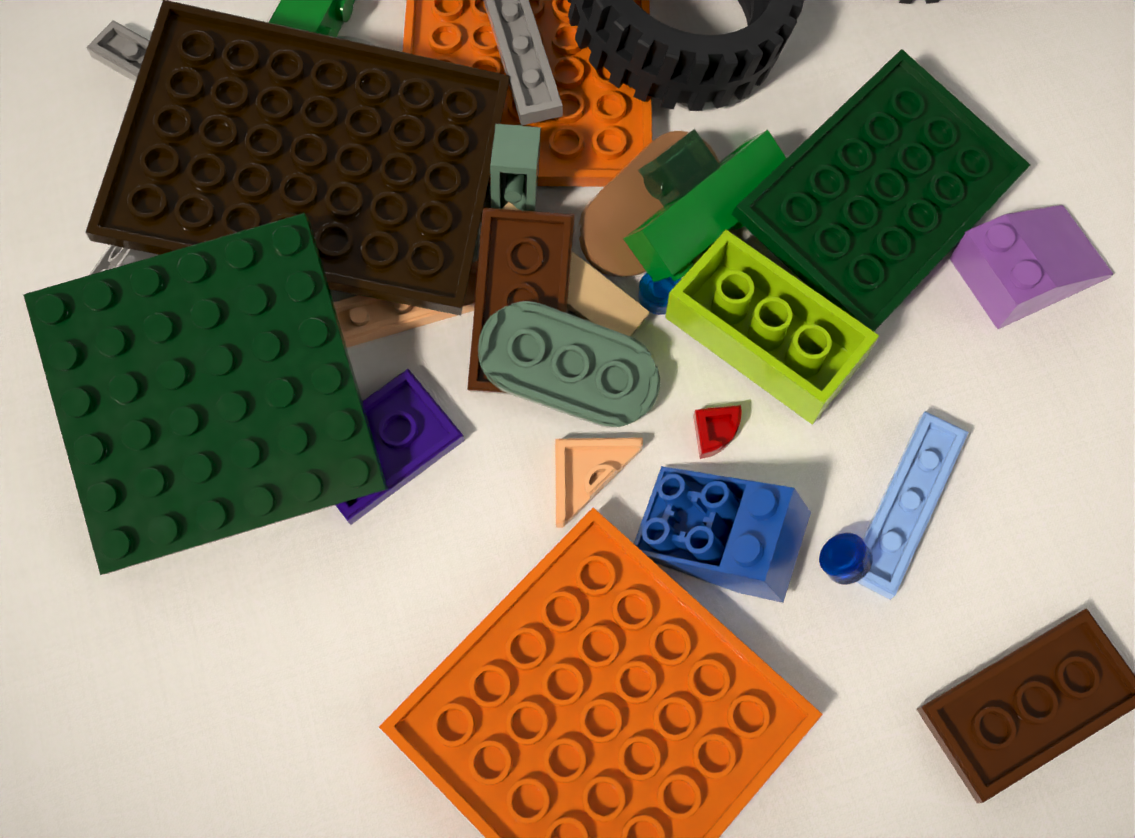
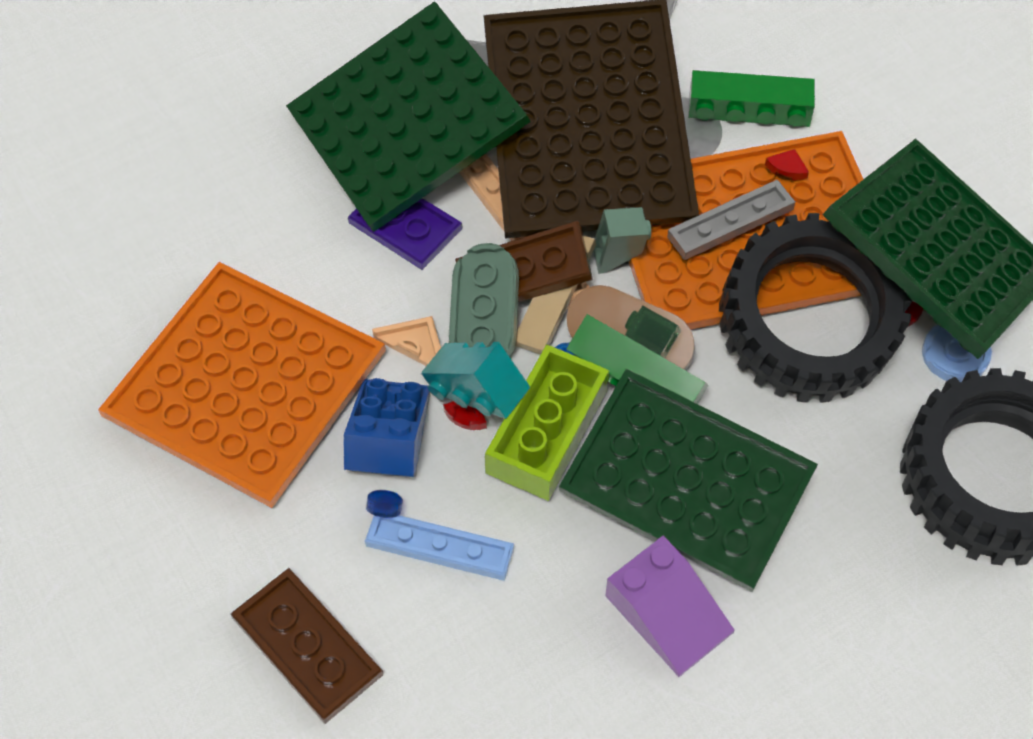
camera: 75 degrees right, 10 degrees down
(701, 394) = (476, 377): none -> teal wedge

